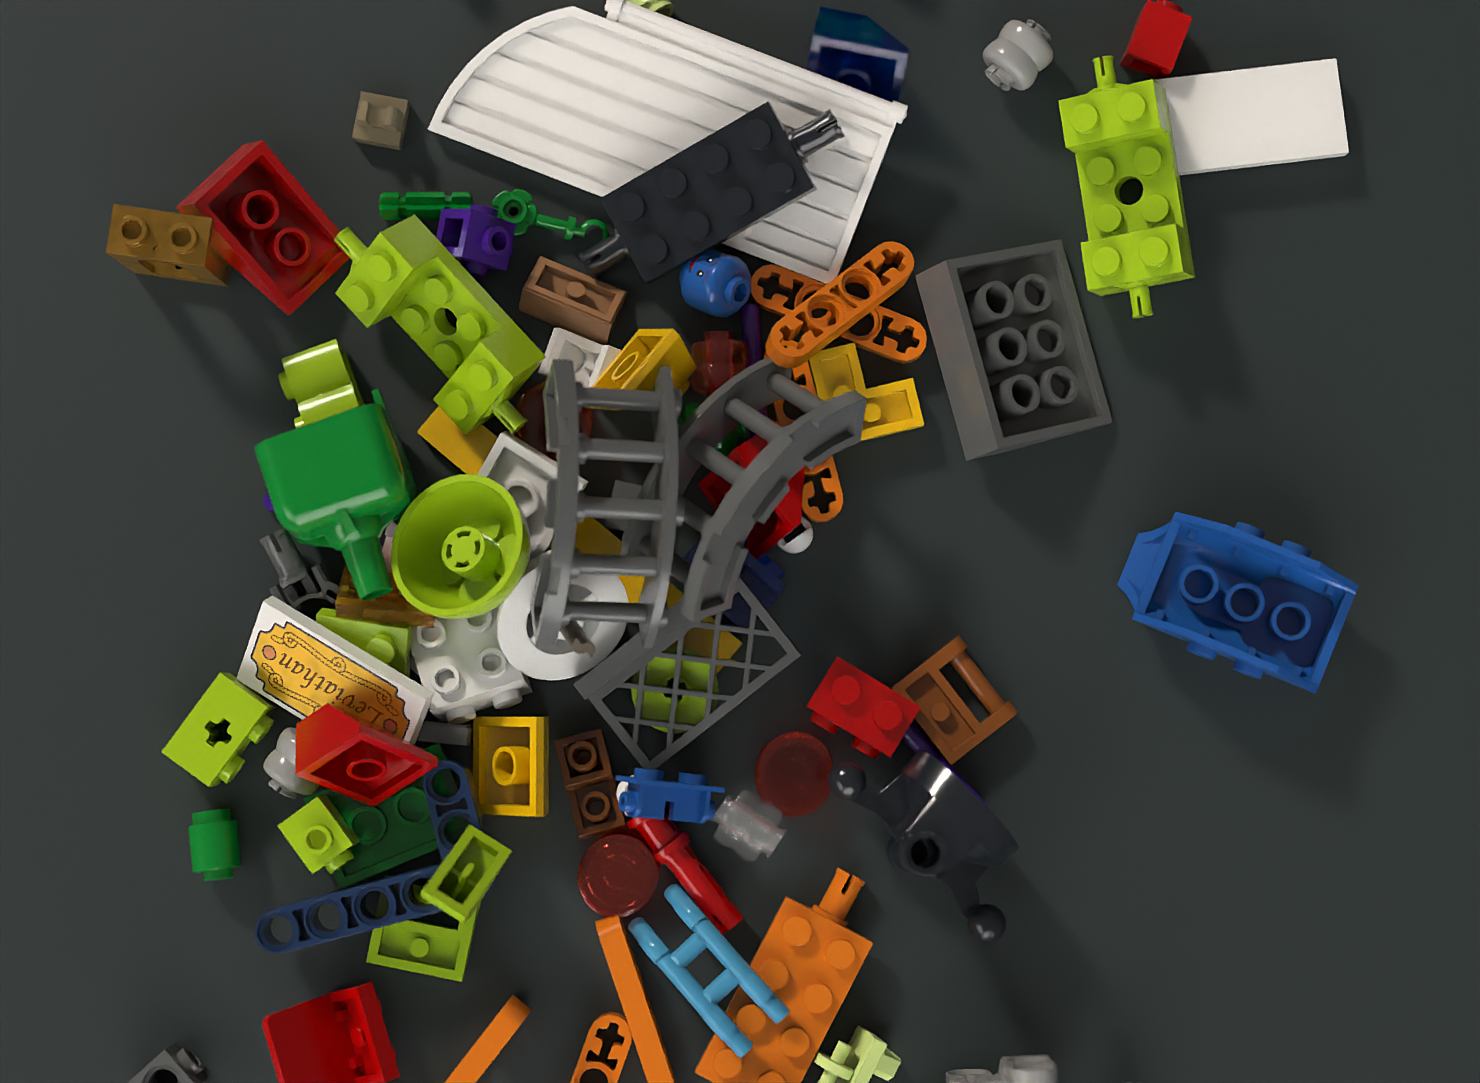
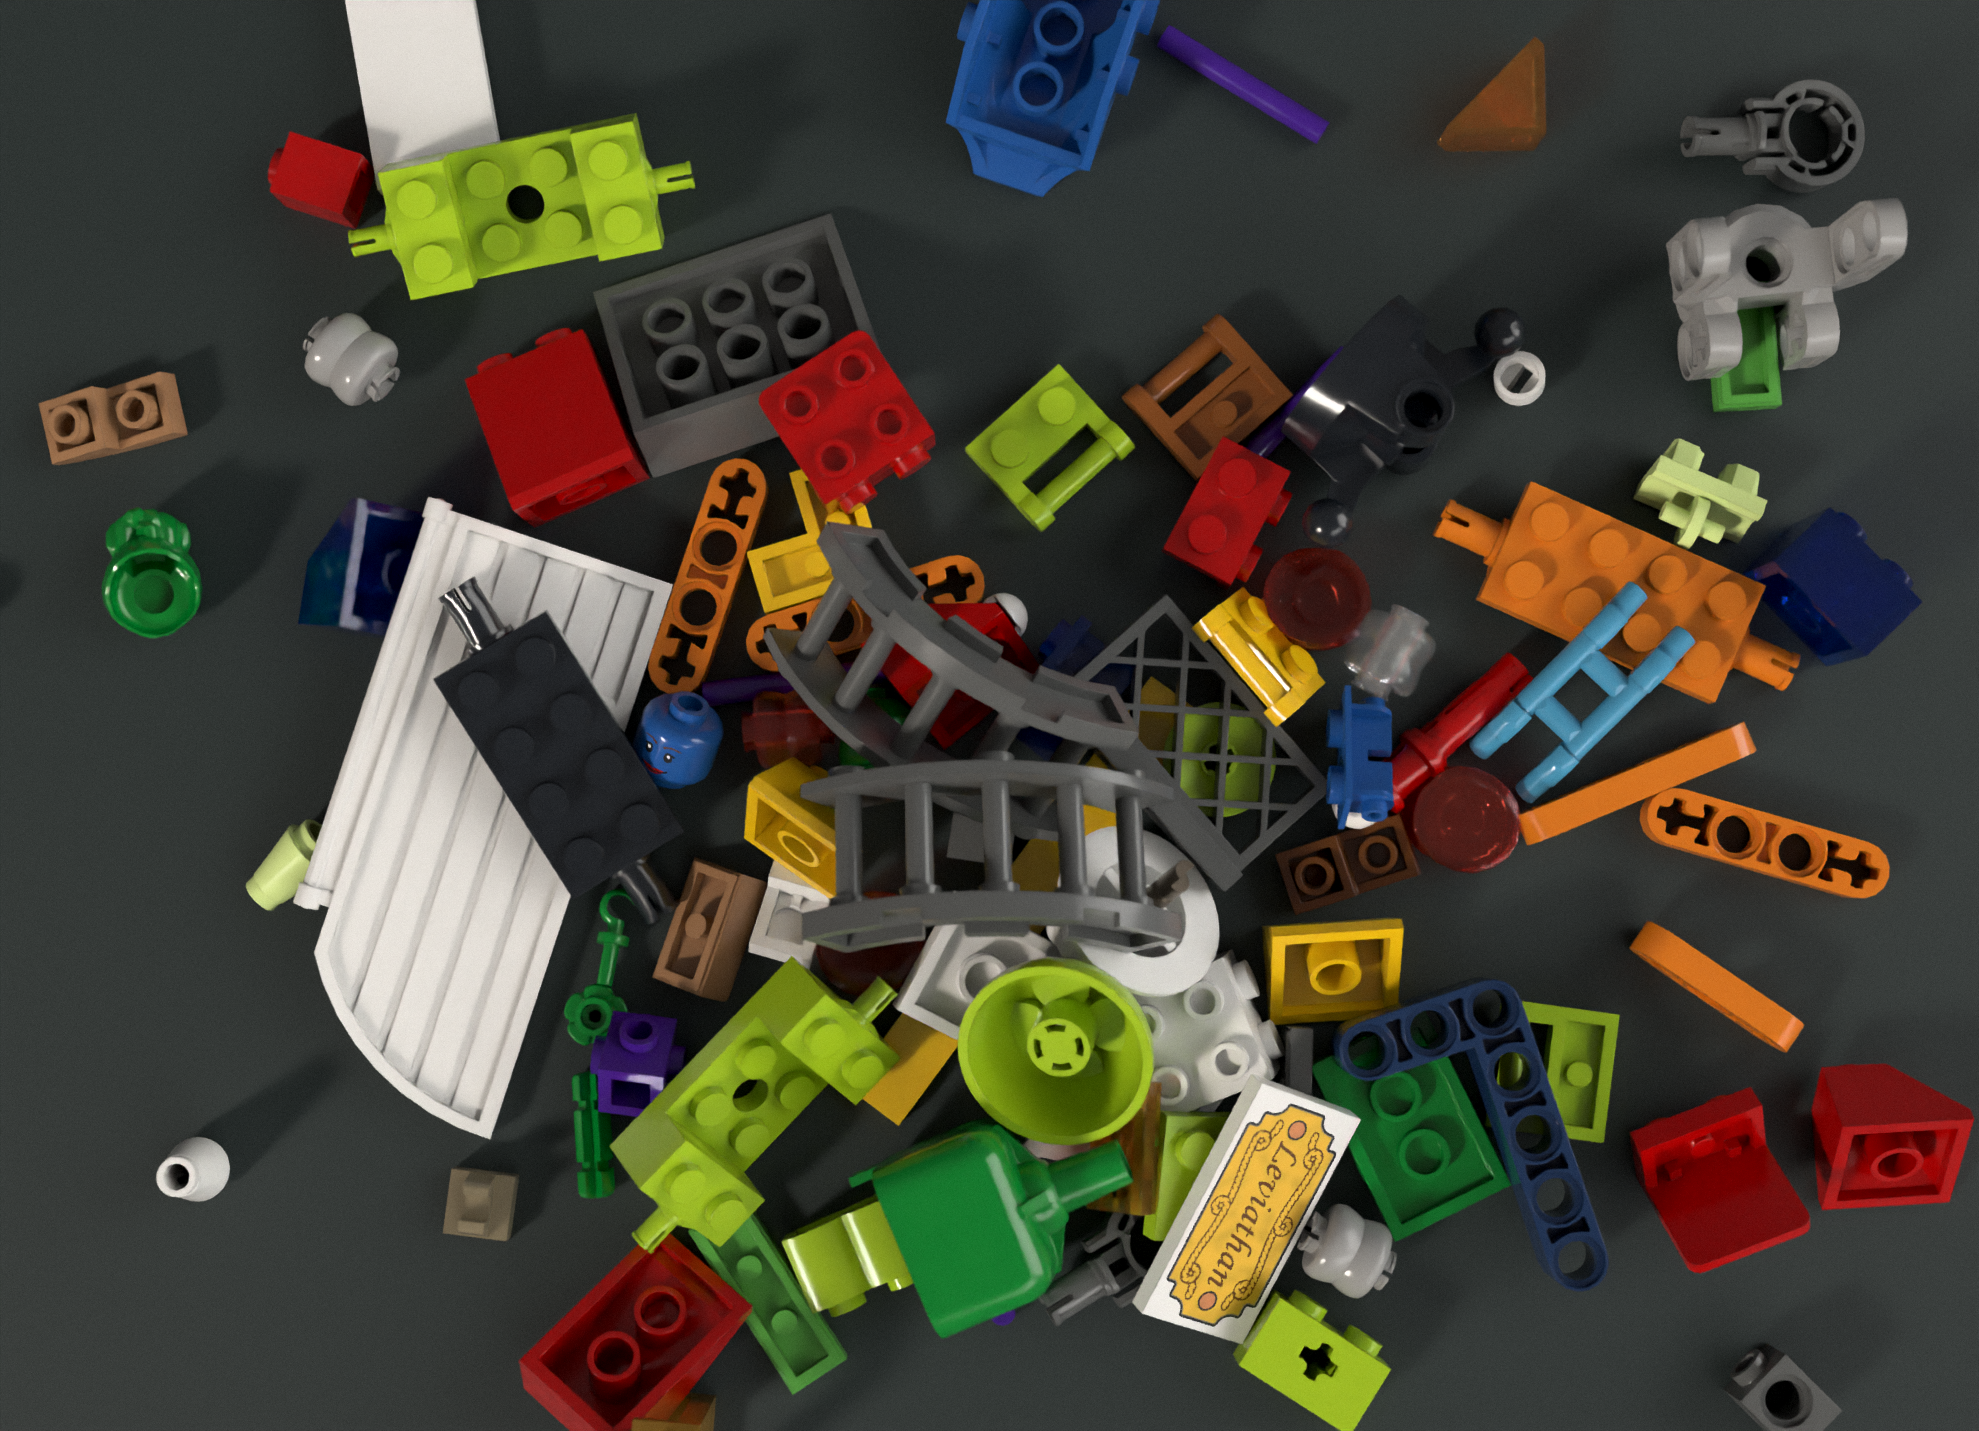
camera: 90 degrees left, 0 degrees up
(214, 844) = (1463, 1356): green brick -> none
(317, 321) = (781, 1319): none -> bright green tile
(320, 835) = (1446, 1214): lime brick -> none
(356, 756) = (1339, 1172): red slope -> none
(466, 874) = (1491, 1013): lime slope -> none
(751, 725) = (1261, 654): none -> yellow plate
(836, 300) = (699, 569): orange beam -> none
(934, 567) = (1034, 433): none -> lime plate
(945, 421) = (848, 422): none -> red bracket
(957, 202) = (554, 427): none -> red slope
(960, 935) = (1509, 371): none -> white hinge
(1164, 946) = (1507, 111): none -> clear orange slope
(1196, 744) = (1243, 84): none -> dark purple bar

